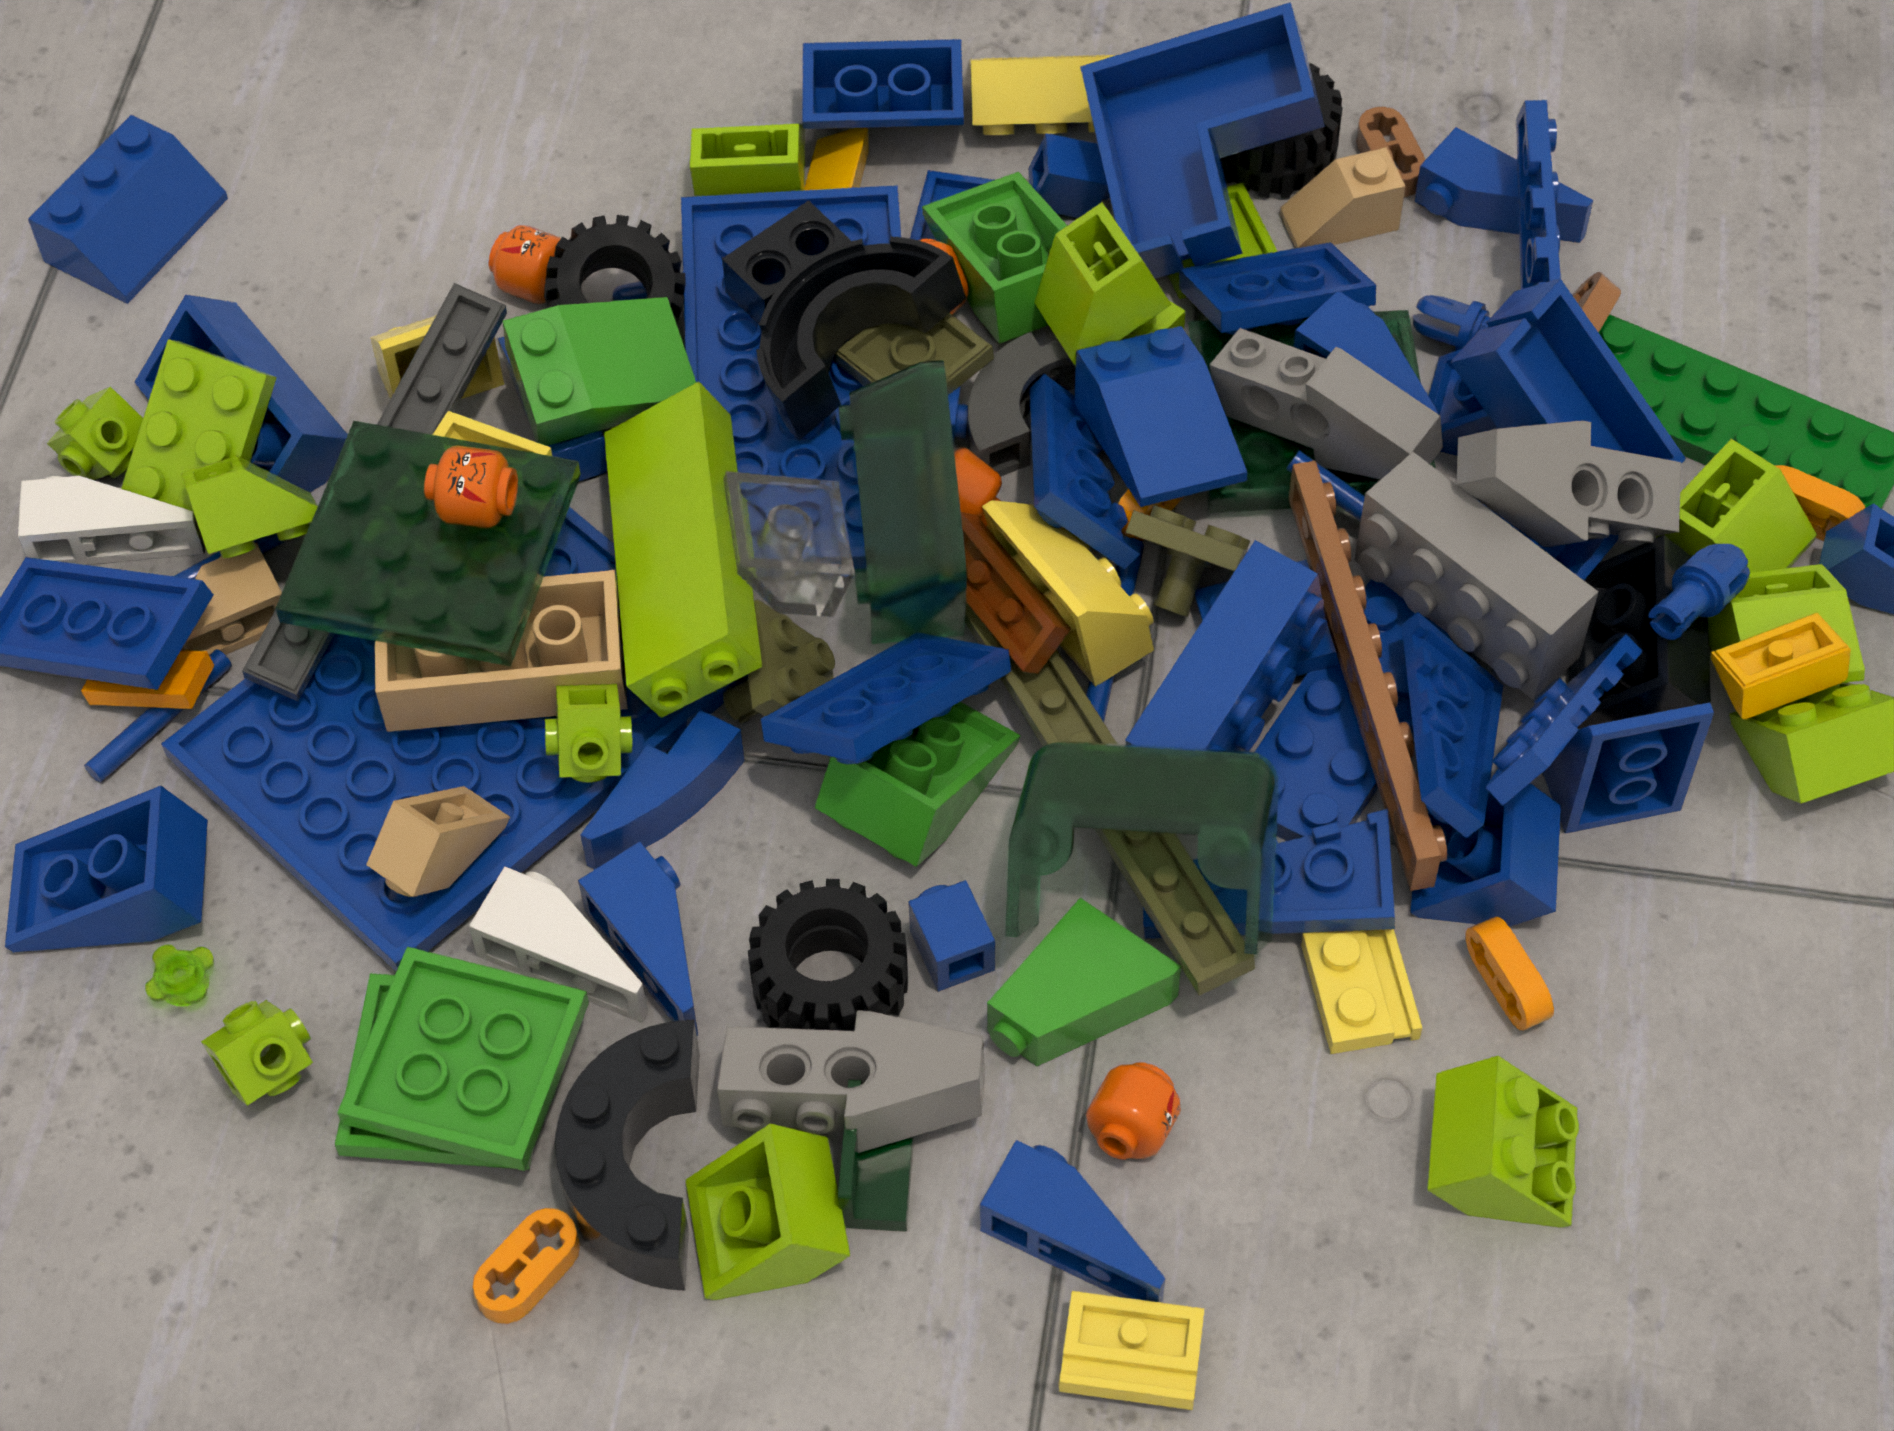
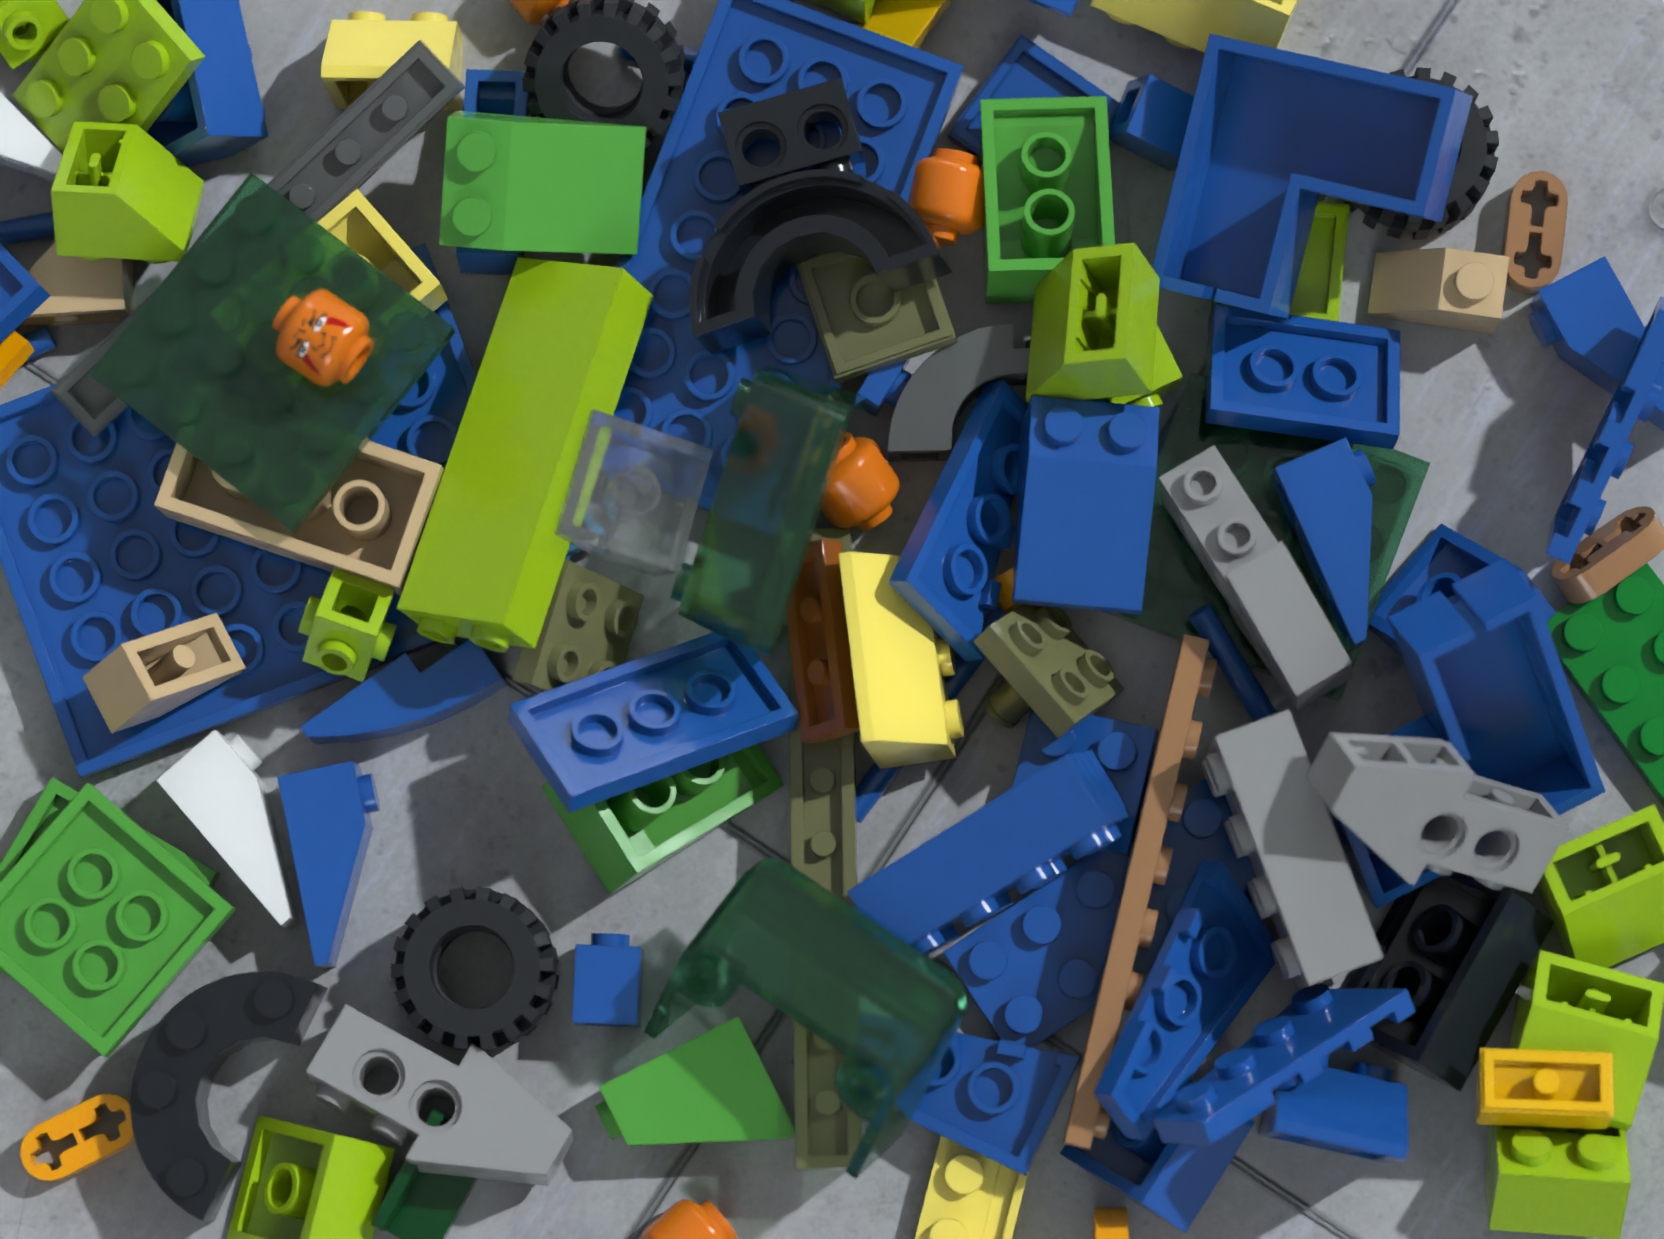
camera: 30 degrees right, 25 degrees up
(1450, 319) = (1482, 509): blue arm -> none
(1701, 589) = (1511, 974): blue arm -> none

